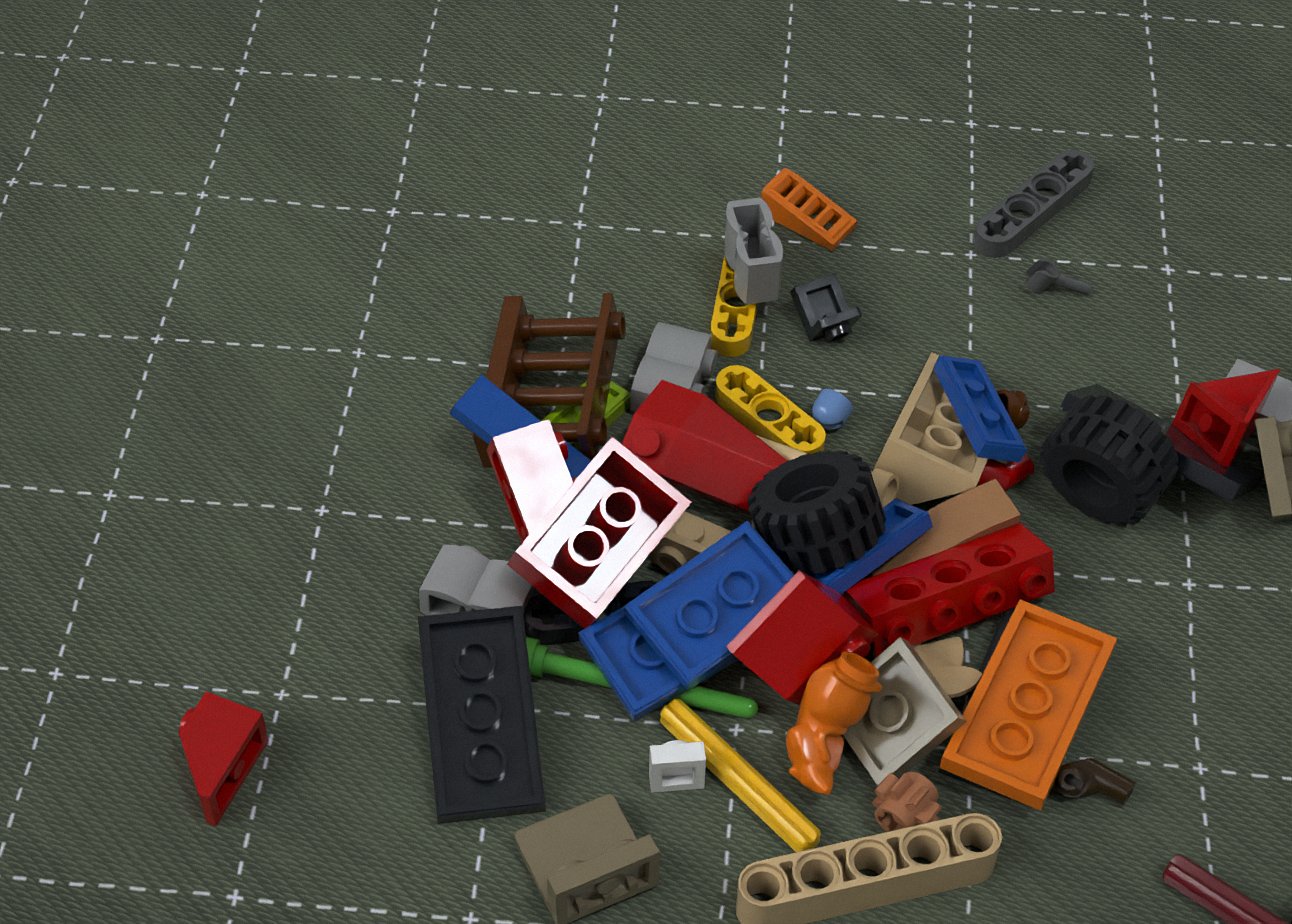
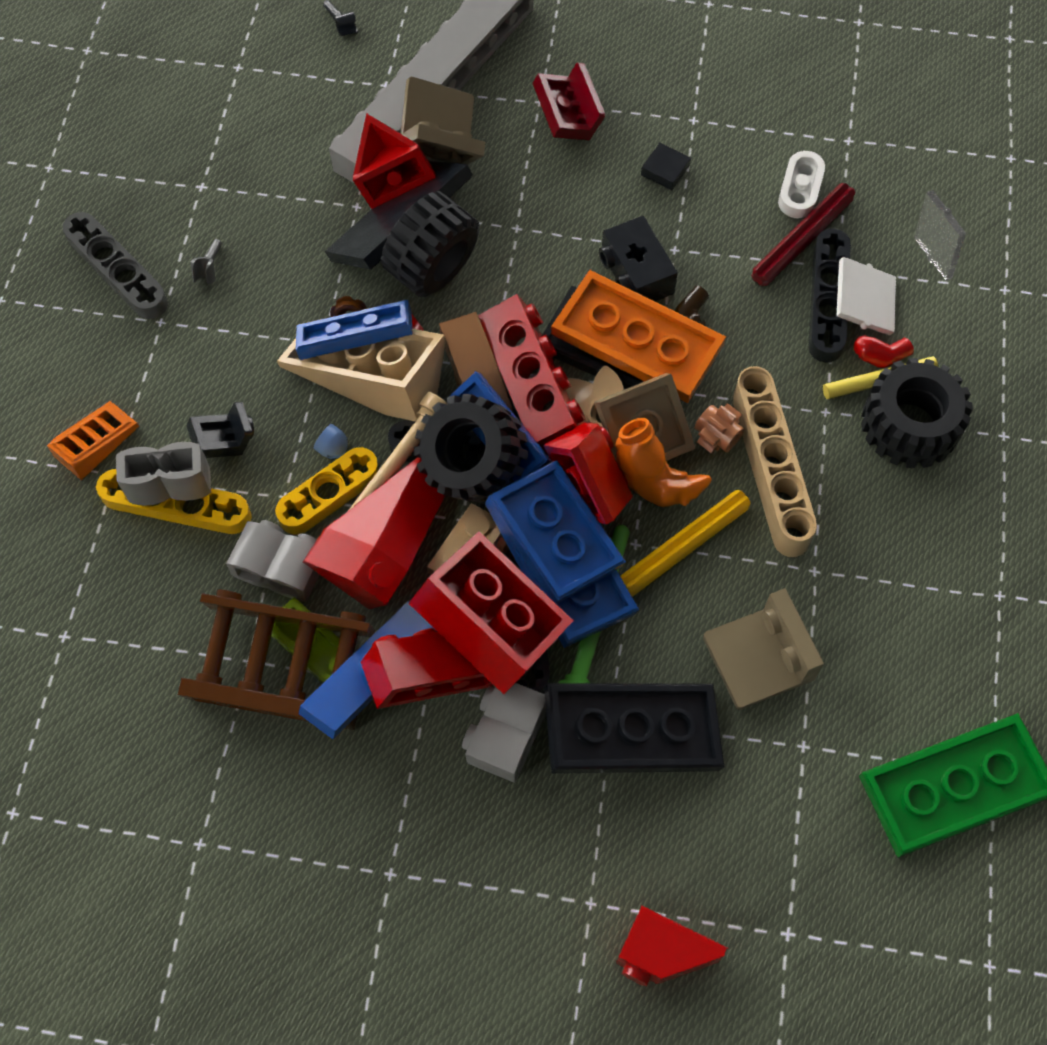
camera: 85 degrees left, 15 degrees up
(677, 766) = (681, 583): white plate -> none
(1155, 709) = (638, 259): none -> black brick

